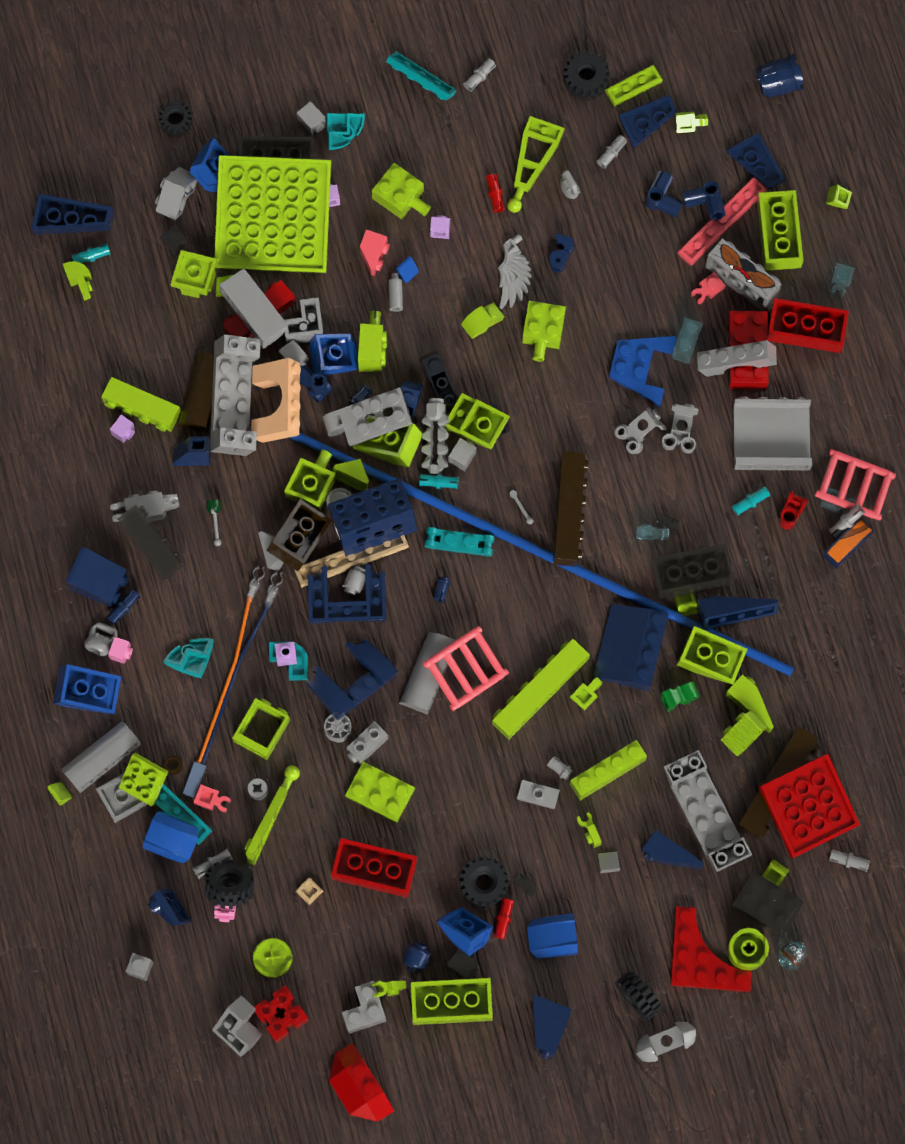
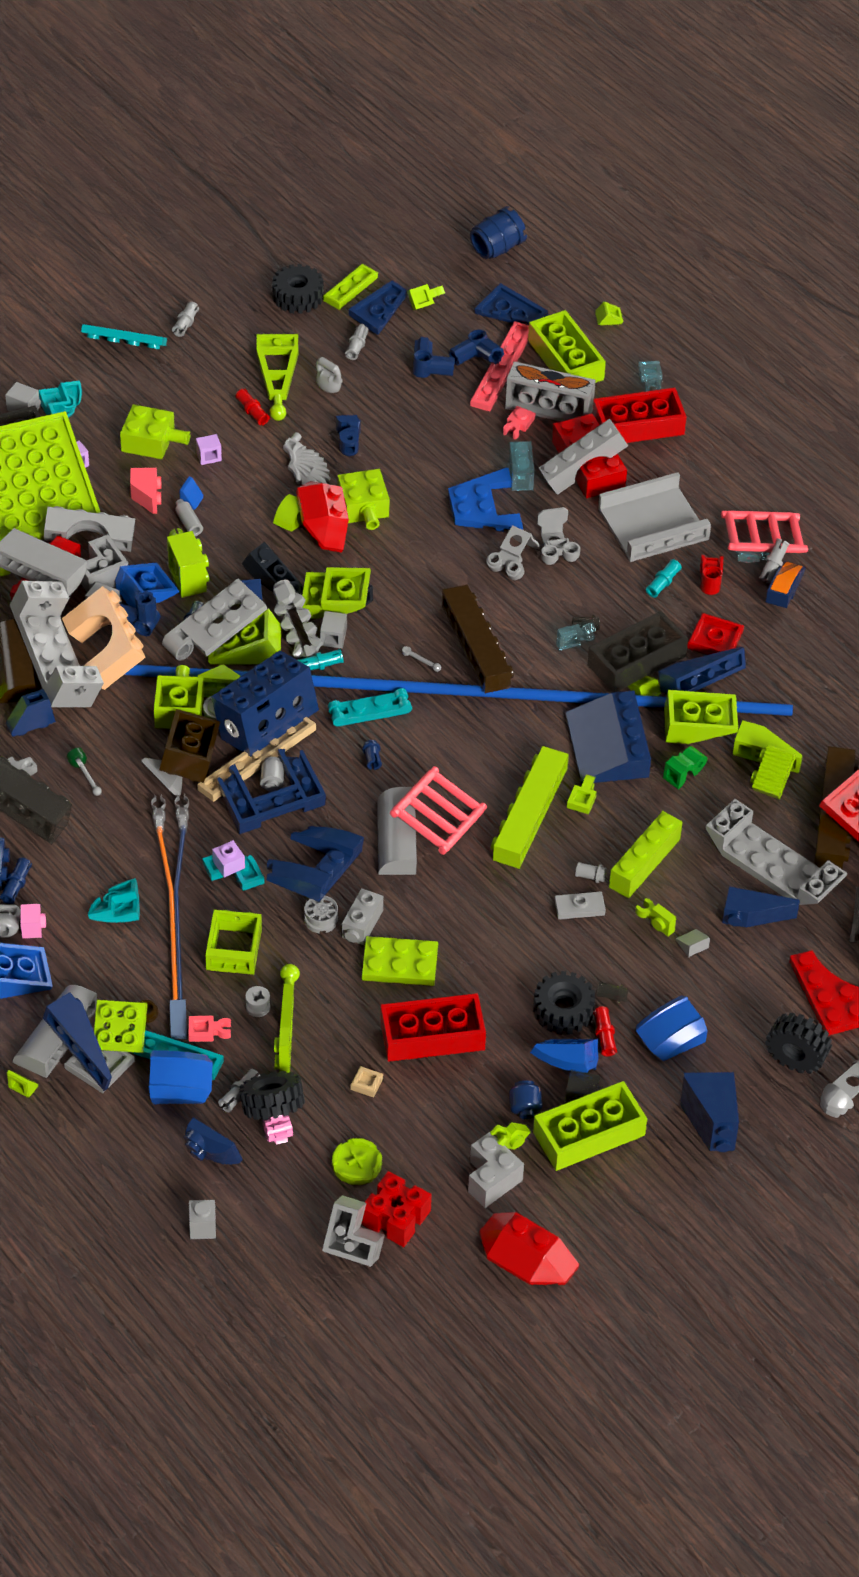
camera: 25 degrees left, 25 degrees down
(107, 768) = (74, 1029): none -> dark blue slope
(288, 269) = (68, 522): none -> light grey arch
(502, 332) = (324, 514): none -> red wedge
(766, 574) = (714, 635): none -> red tile

